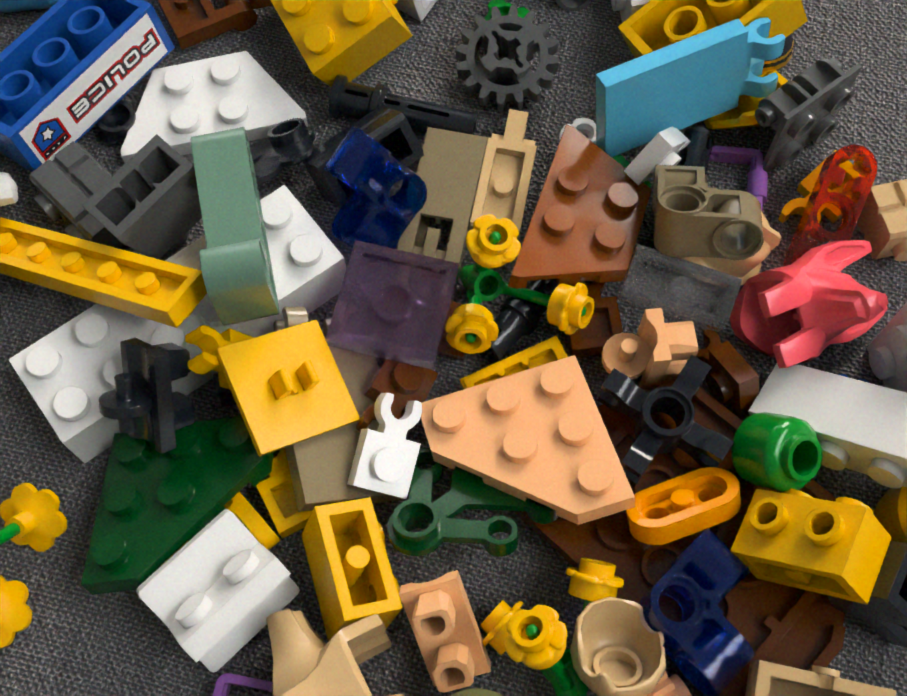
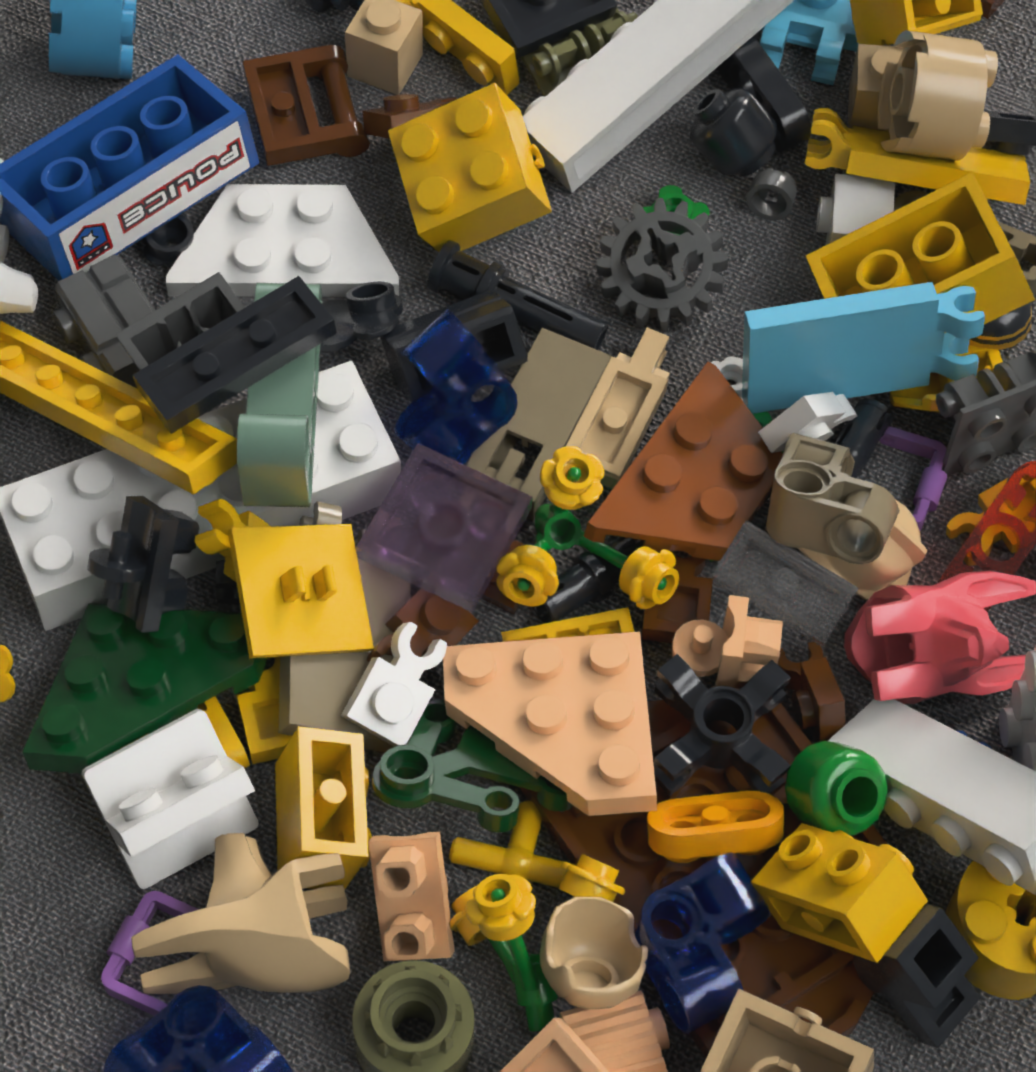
camera: 10 degrees right, 5 degrees down
(184, 200) = (235, 354): none -> black plate
(522, 569) = (517, 857): none -> yellow piece

